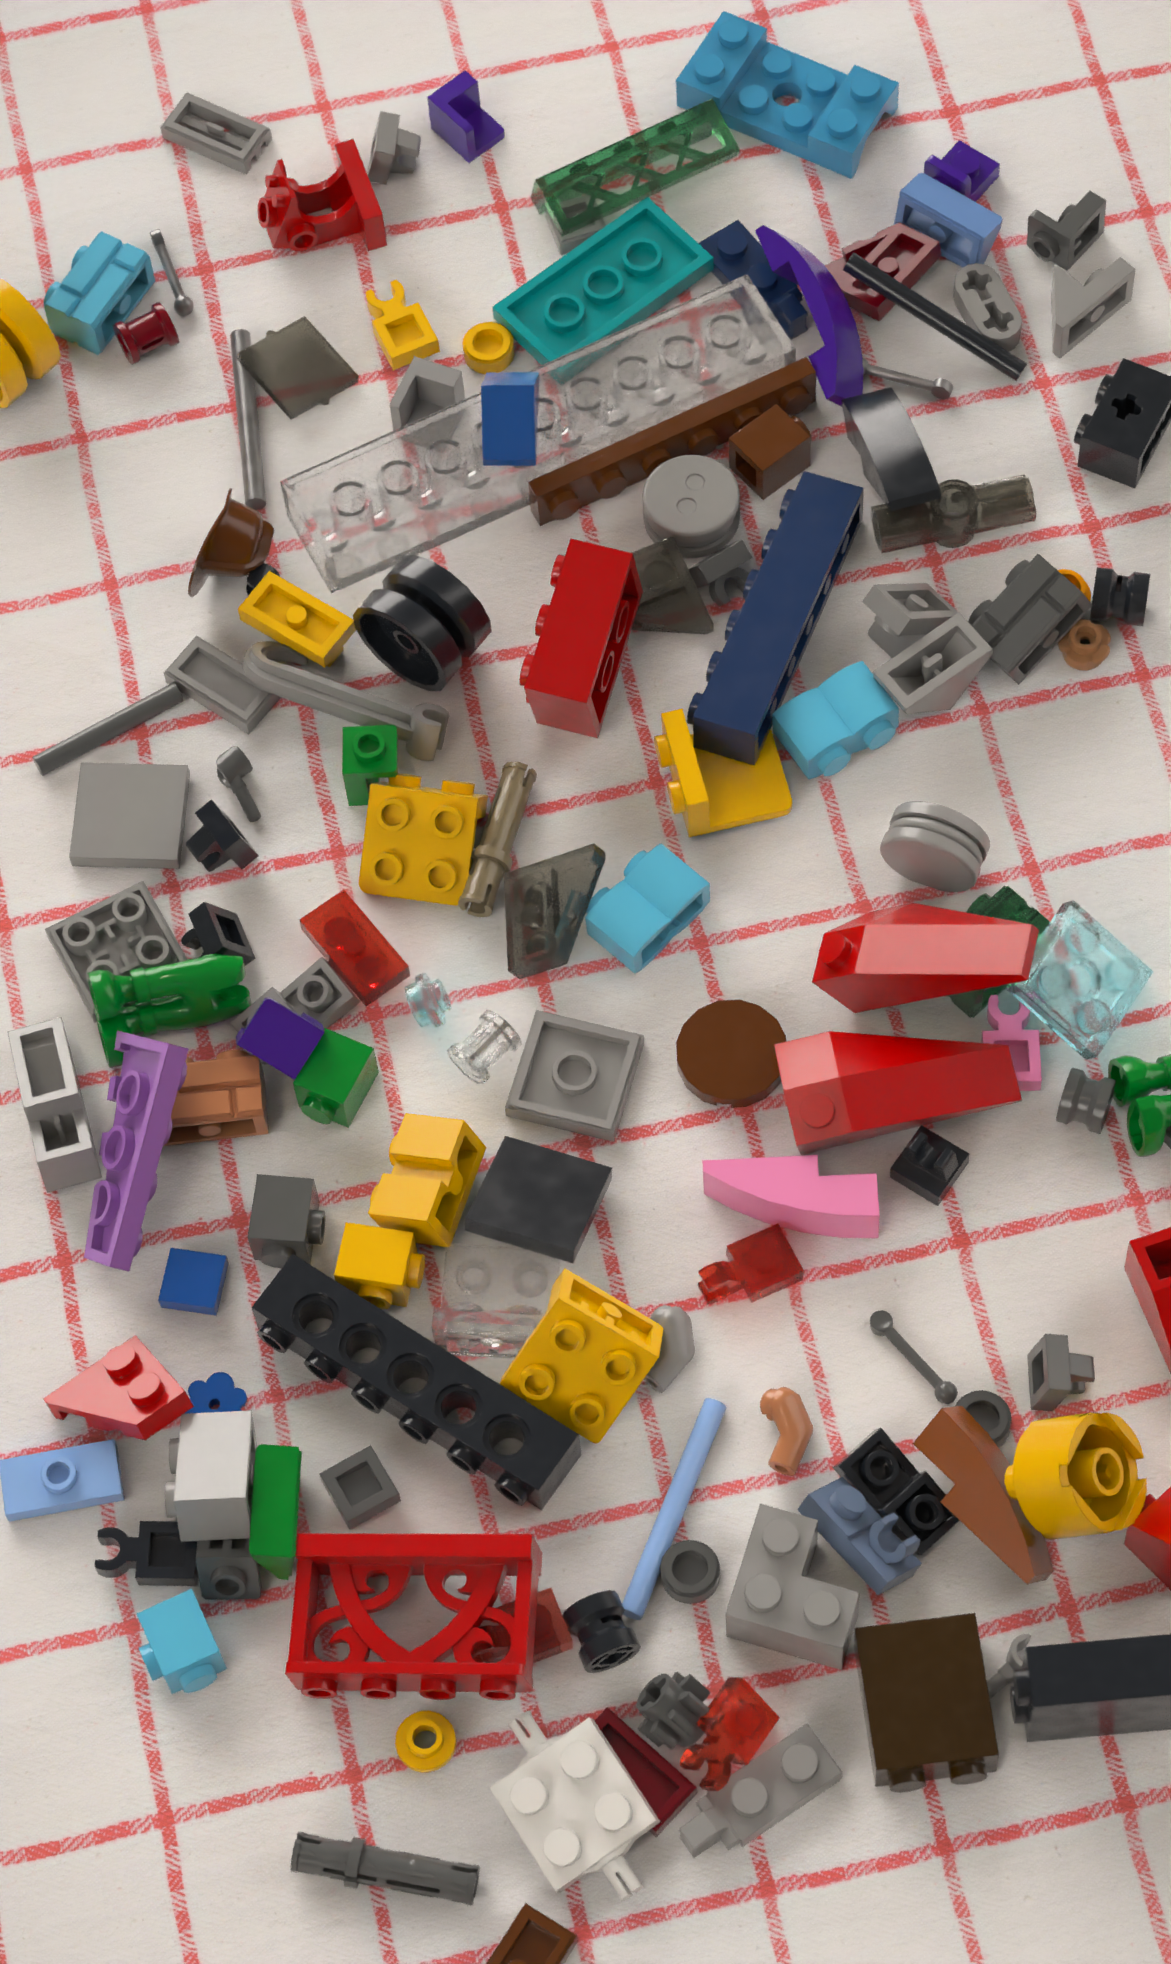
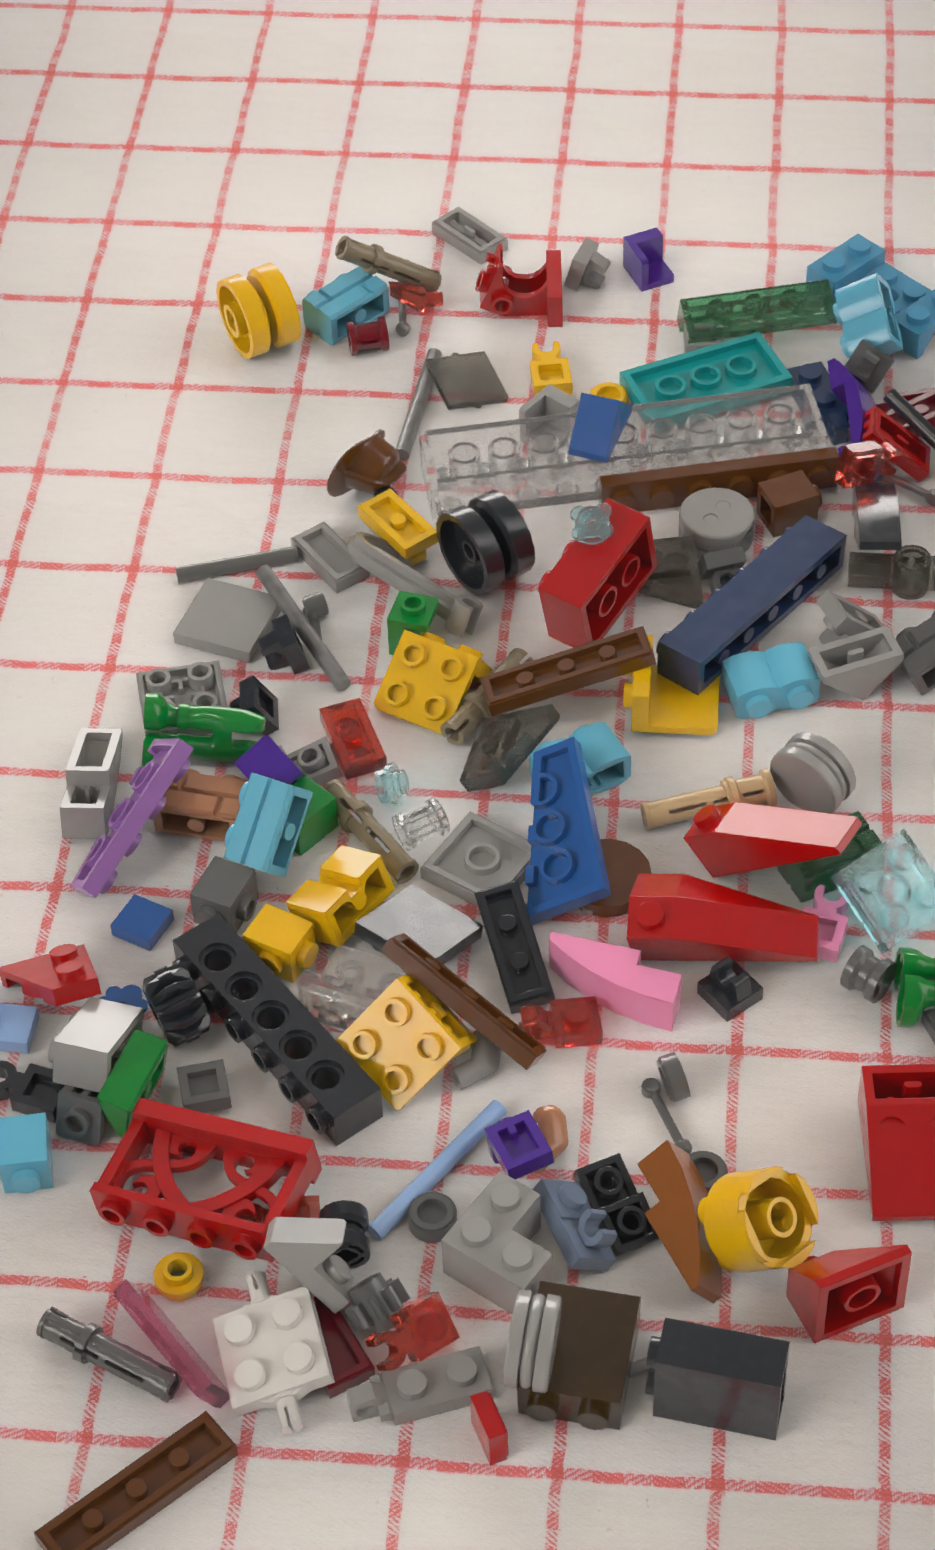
camera: 15 degrees right, 15 degrees down
(122, 224) = (375, 260): none -> dark tan pin
(185, 254) = (415, 296): none -> clear red bar
(231, 804) = (303, 628): none -> flat silver bar
(289, 1391) = (176, 1004): none -> black gear
(307, 1115) = (267, 824): none -> medium azure brick
(455, 1834) = (172, 1344): none -> clear pink tile
(475, 1108) = (397, 860): none -> dark tan pin
(569, 598) = (592, 532): none -> clear light blue plate
(584, 1680) = (306, 1250): none -> light grey slope
(595, 788) = (567, 671): none -> reddish brown tile
(634, 1287) = (464, 1000): none -> reddish brown tile
(658, 1184) = (514, 946): none -> black tile
(674, 1032) = (564, 839): none -> blue wing
(764, 1457) = (518, 1145): none -> dark purple bracket
(781, 148) = (867, 314): none -> medium azure brick
(802, 215) = (869, 365): none -> dark grey tile
(841, 899) = (657, 812): none -> tan pin
(848, 378) = (862, 461): none -> clear red plate
(856, 1822) = (489, 1427): none -> red tile
(878, 329) = (915, 453): none -> red tile
(885, 1721) = (532, 1341): none -> light grey head
(907, 1306) = (673, 1077): none -> dark grey tile
(1056, 1372) = (777, 1149): dark grey tile -> none

